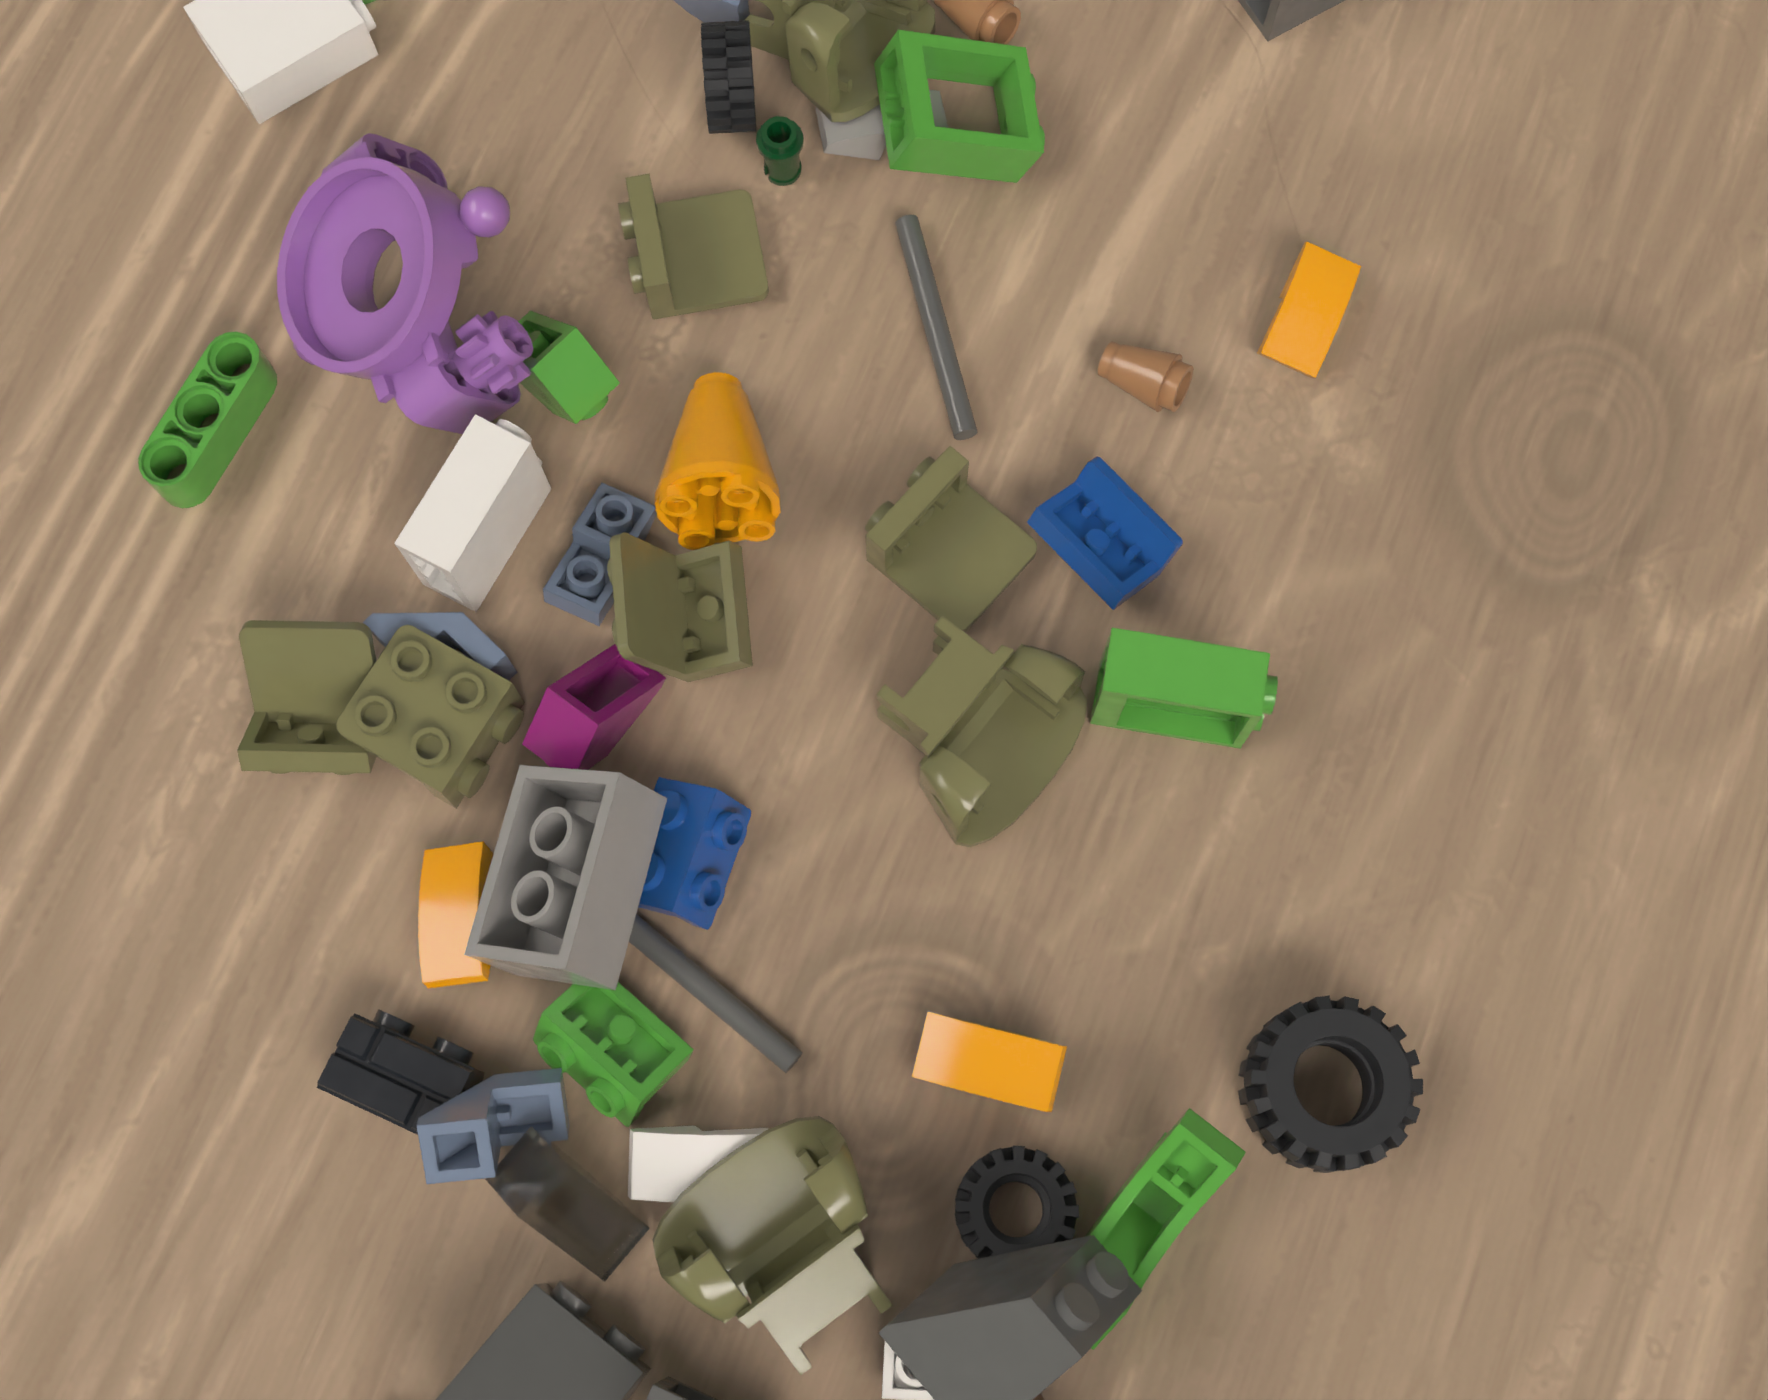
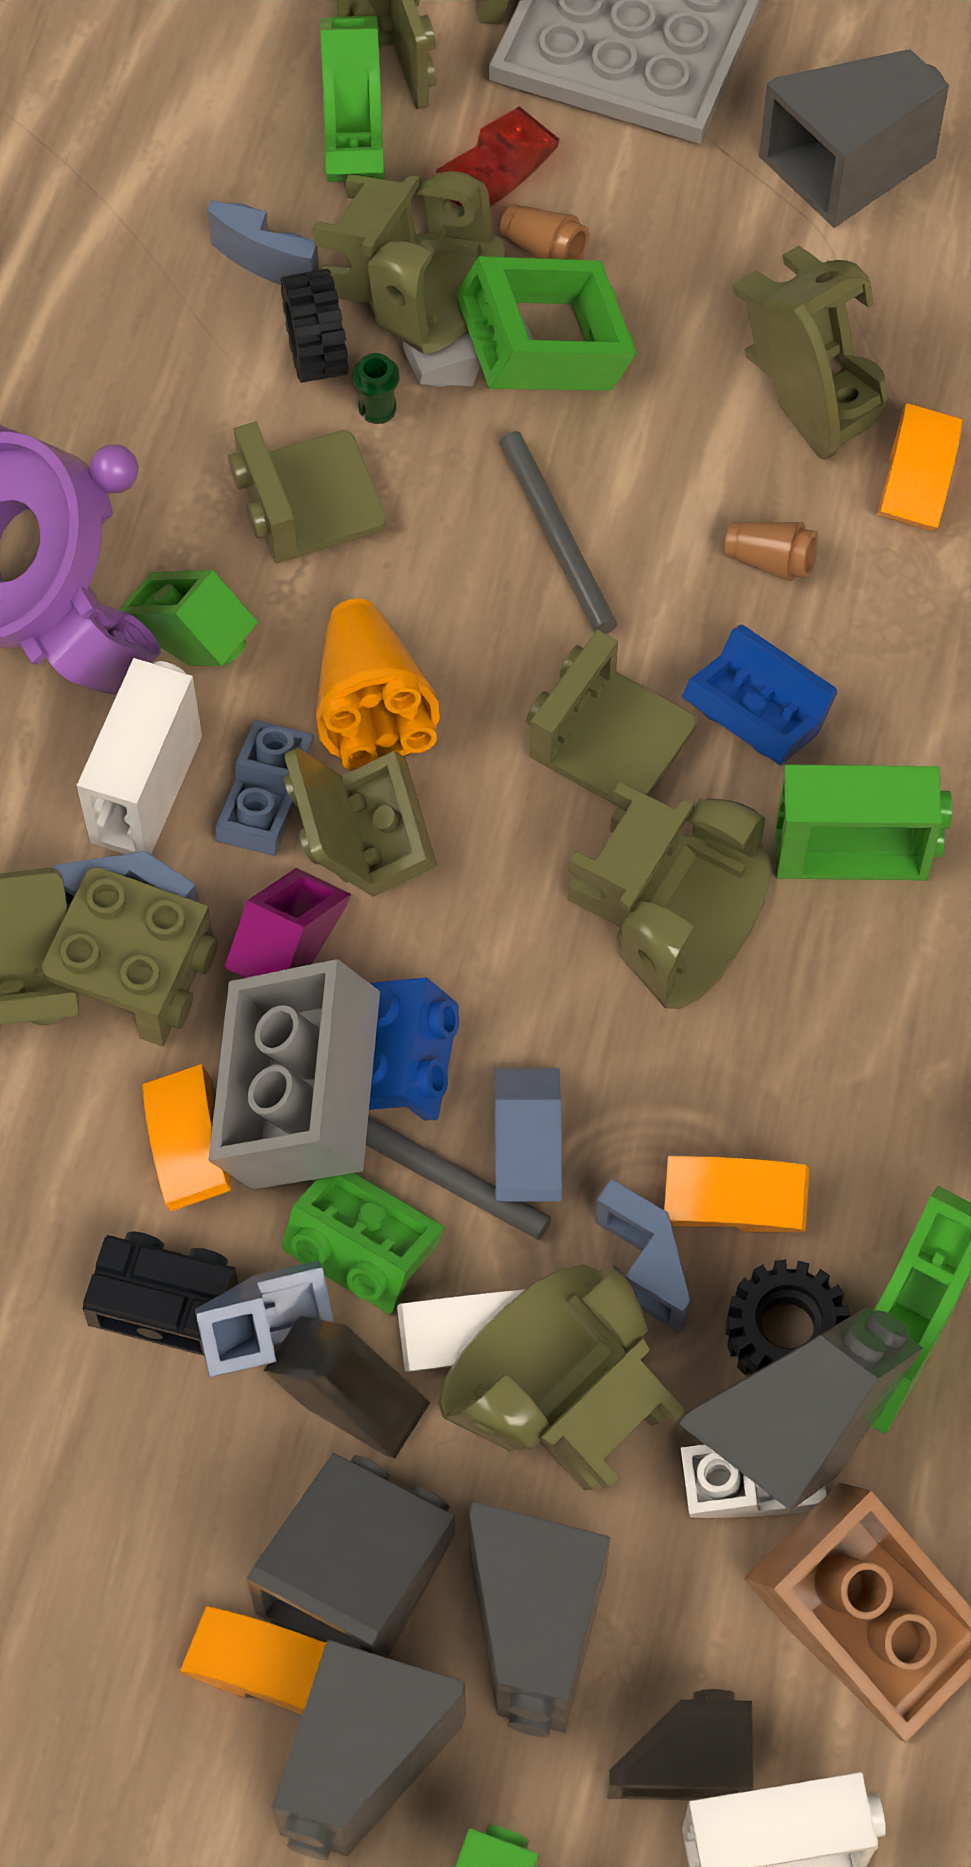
camera: 10 degrees left, 10 degrees down
(493, 352) = (137, 602): medium lavender gear -> none
(792, 965) = (528, 1134): none -> sand blue slope
(894, 1136) = (658, 1270): none -> sand blue slope
(1209, 150) = (797, 333): none -> olive piece

